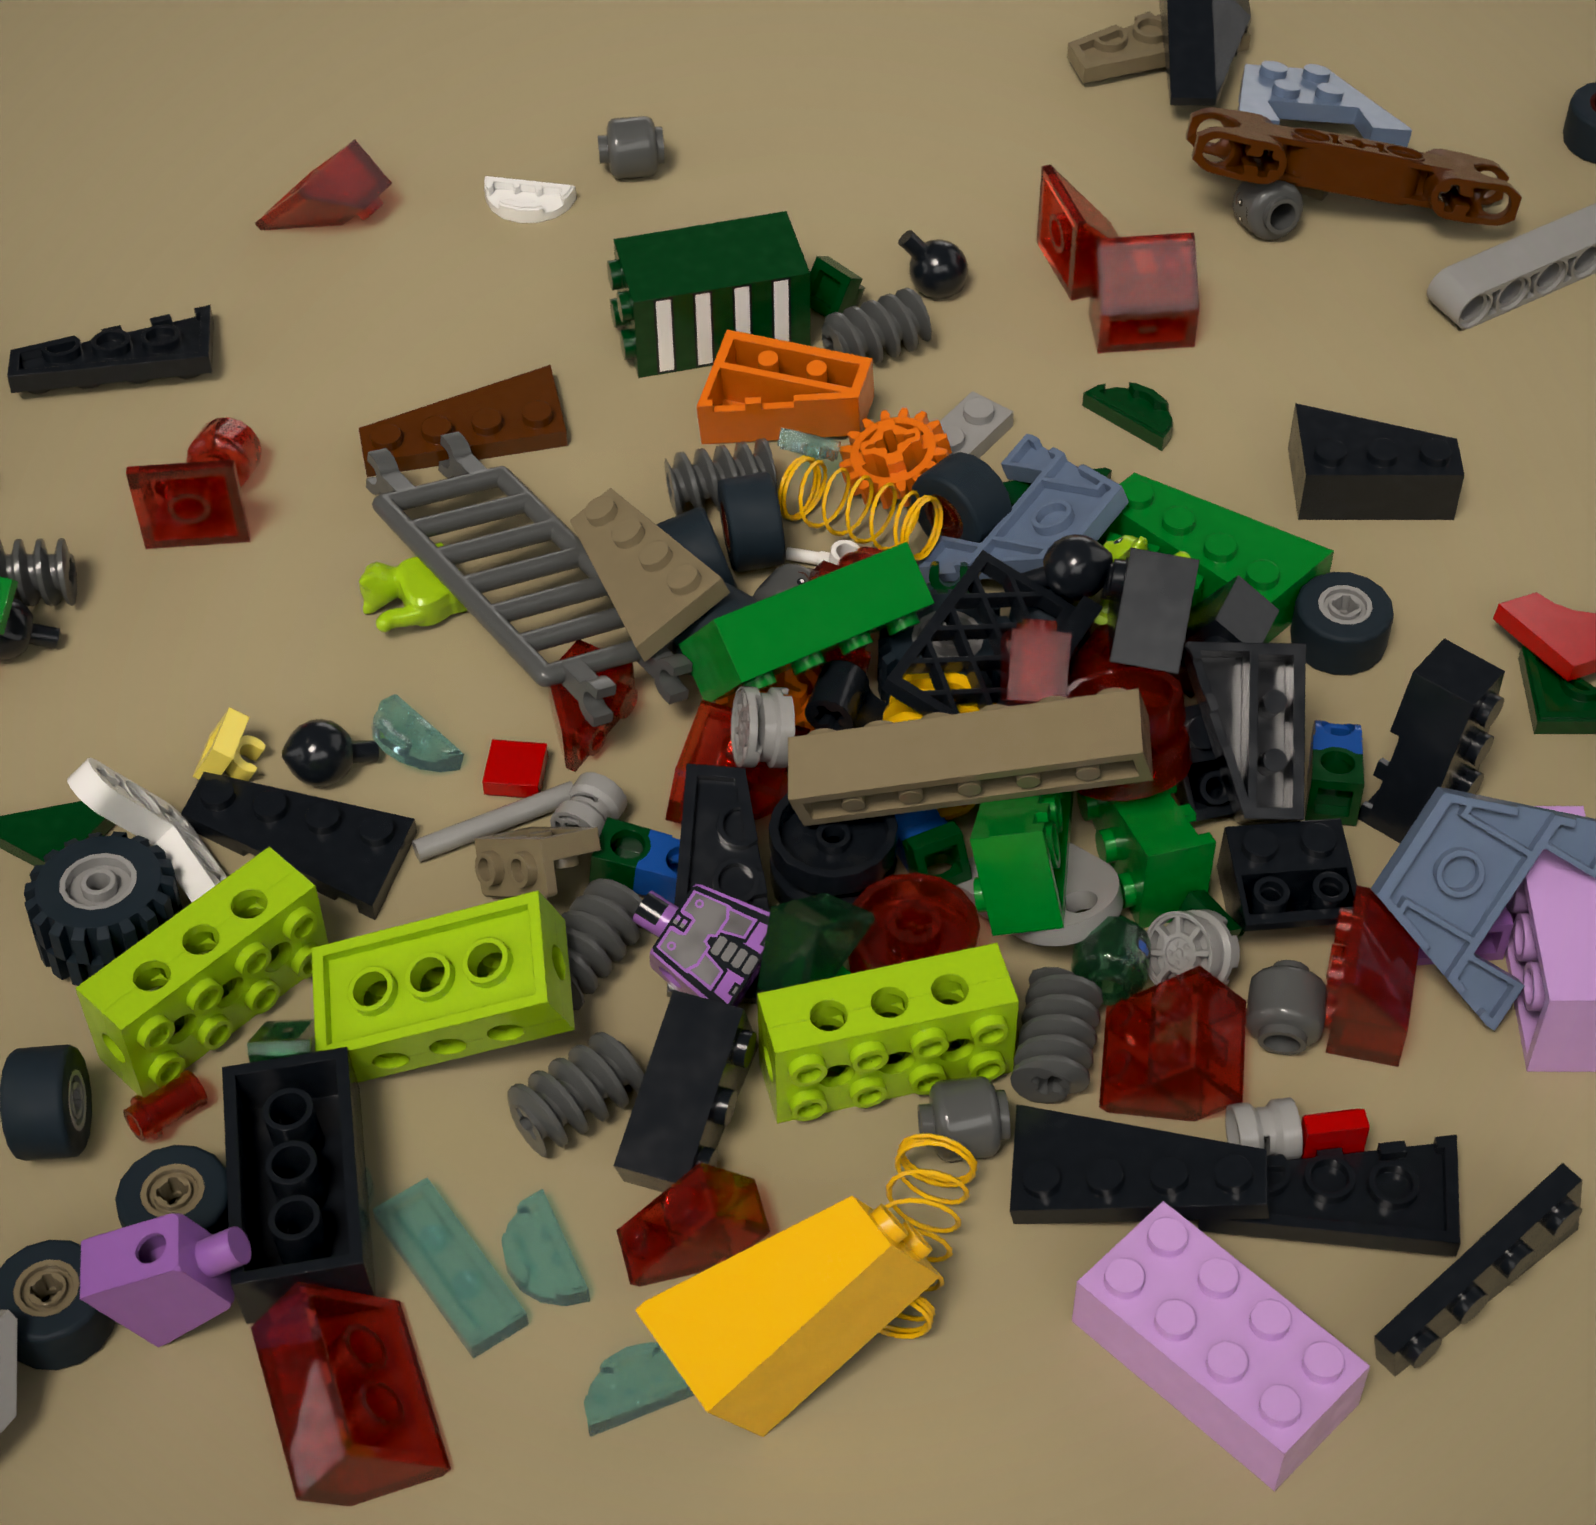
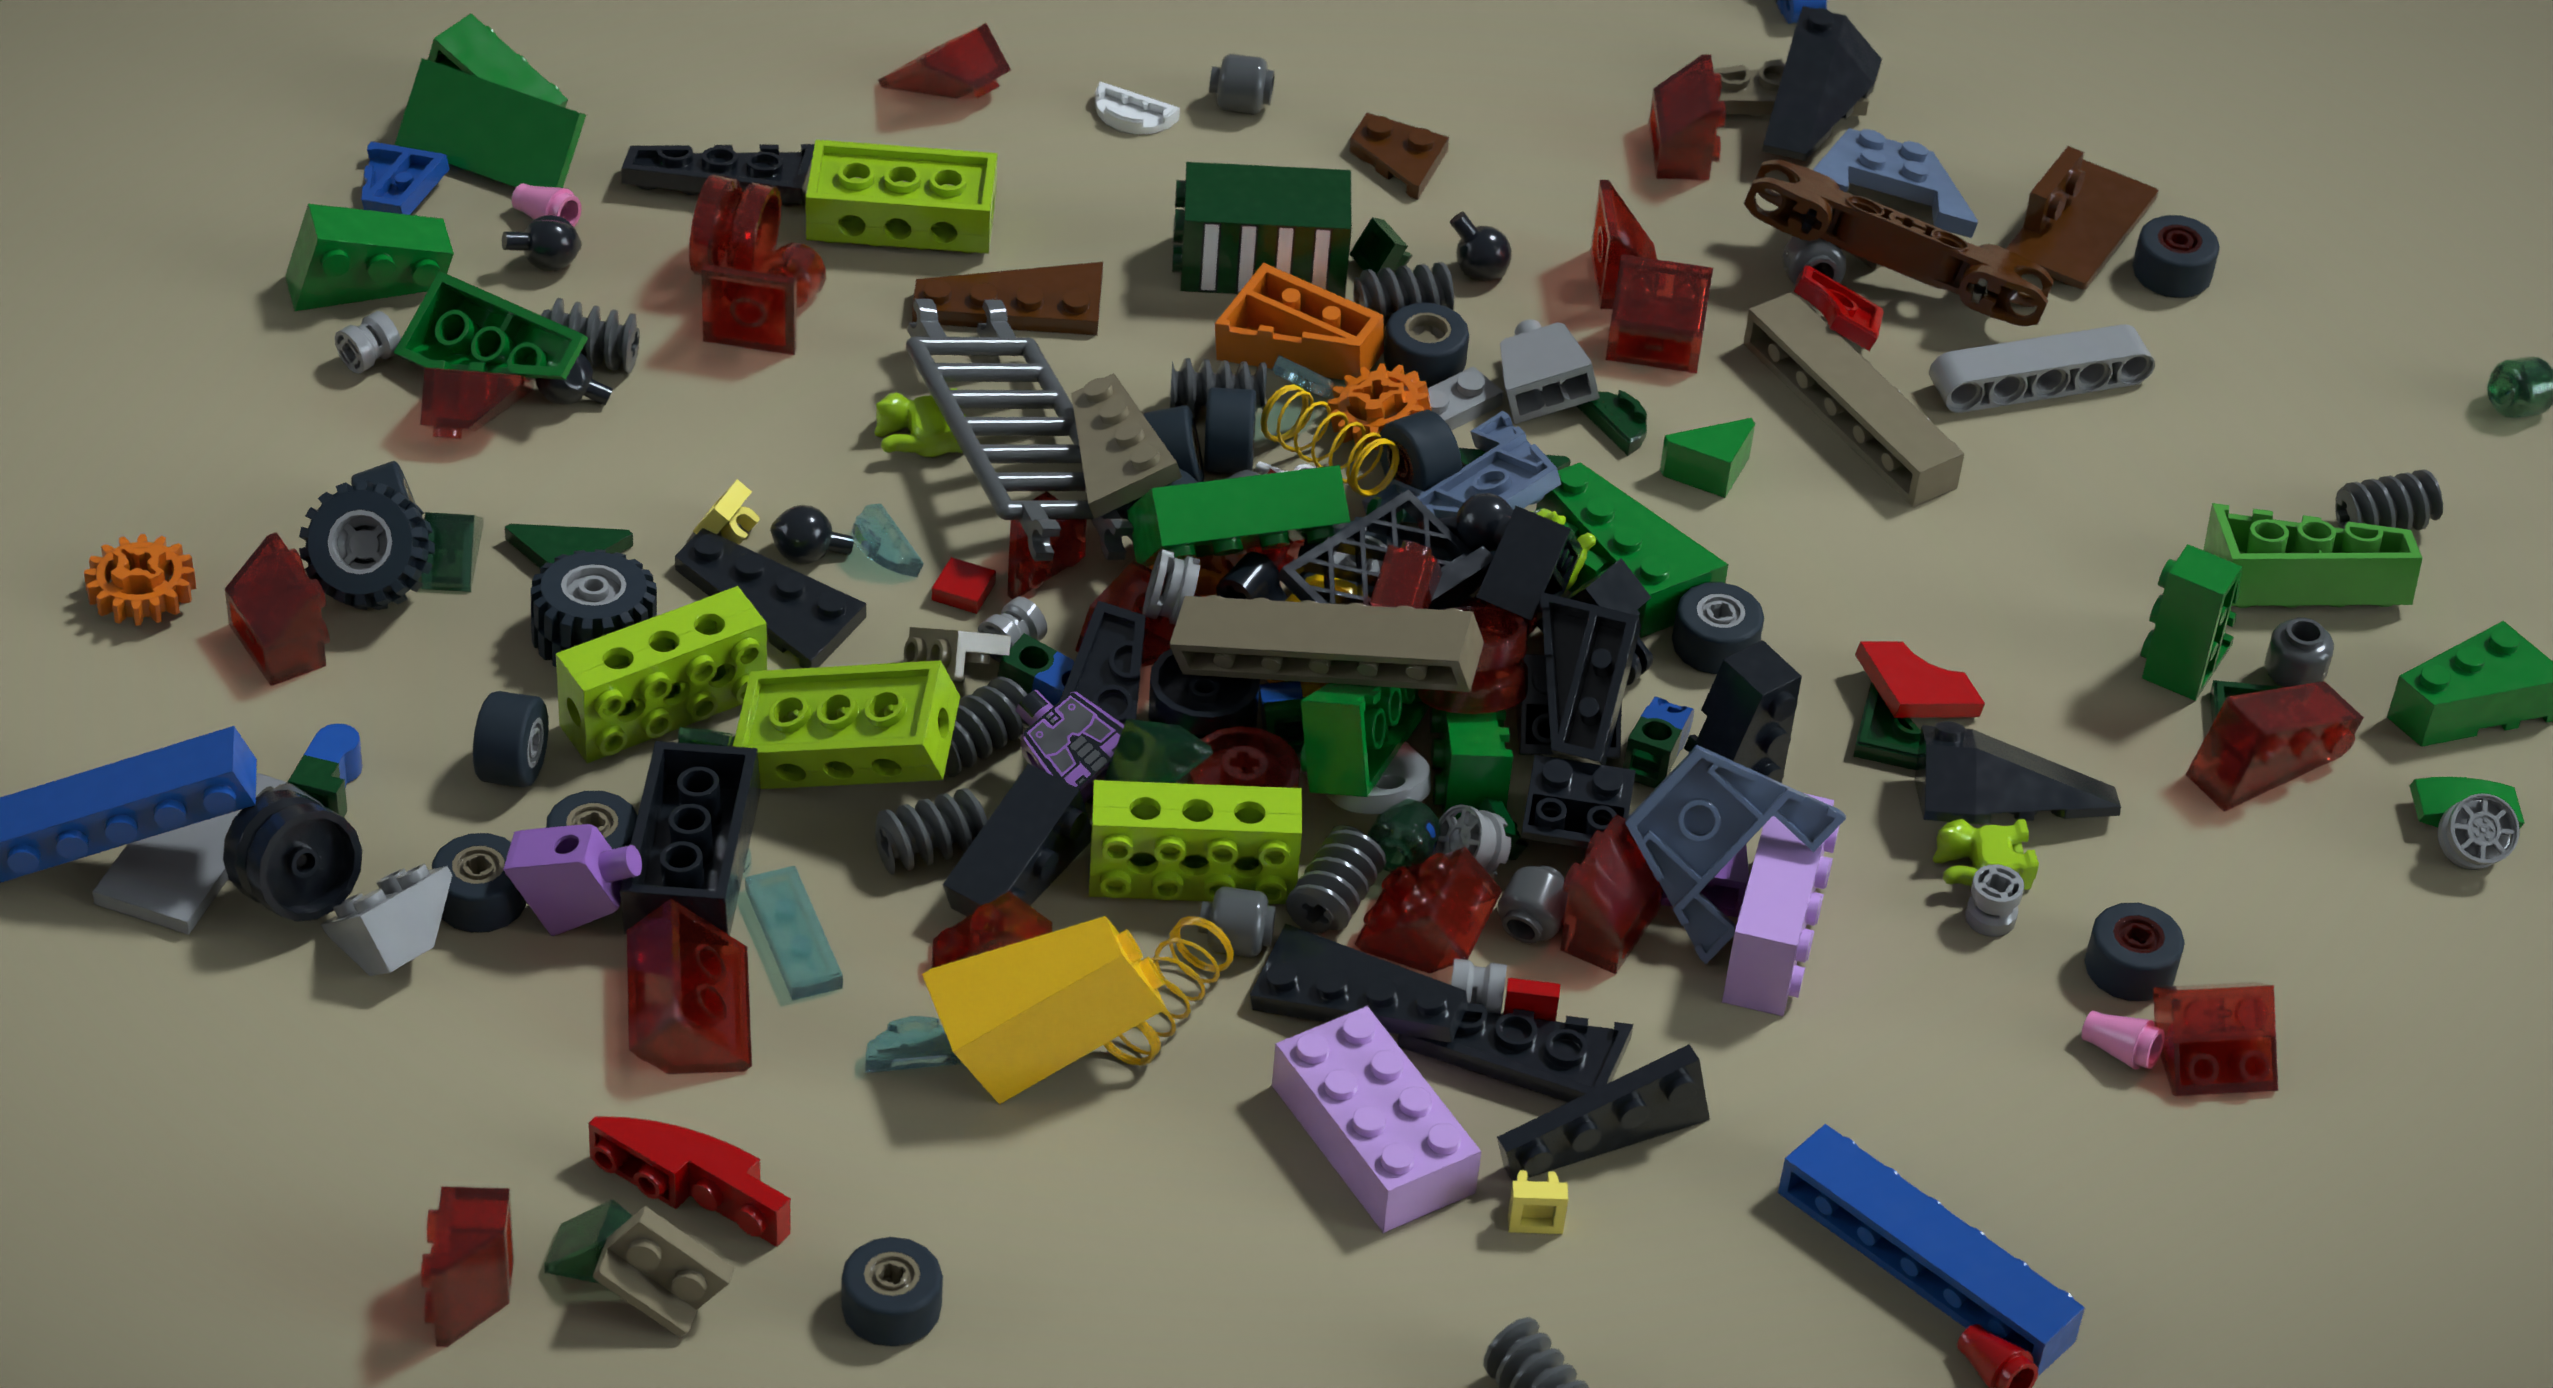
camera: 10 degrees right, 5 degrees down
(147, 415) = (734, 225): none -> clear red wheel
(151, 818) = (643, 545): white beam -> none
(164, 1106) = (602, 767): clear red pin -> none
(317, 341) = (883, 196): none -> lime brick
(491, 822) = (935, 620): light grey bar -> none
(540, 1256) = (866, 941): clear light blue tile -> none
(810, 182) = (1399, 151): none -> reddish brown wing
(917, 375) = (1426, 341): none -> black wheel
(1052, 378) = (1545, 371): none -> light grey torso
(1088, 90) = (1686, 121): none -> clear red slope
(1249, 434) = (1708, 455): none -> green slope
(1324, 247) = (1842, 308): none -> red tile
(1369, 339) = (1853, 399): none -> dark tan brick
(1371, 469) = (1801, 509): black wedge -> none
(1446, 1411) = (1537, 1205): none -> light yellow tile
(1501, 107) = (2079, 218): none -> reddish brown bracket

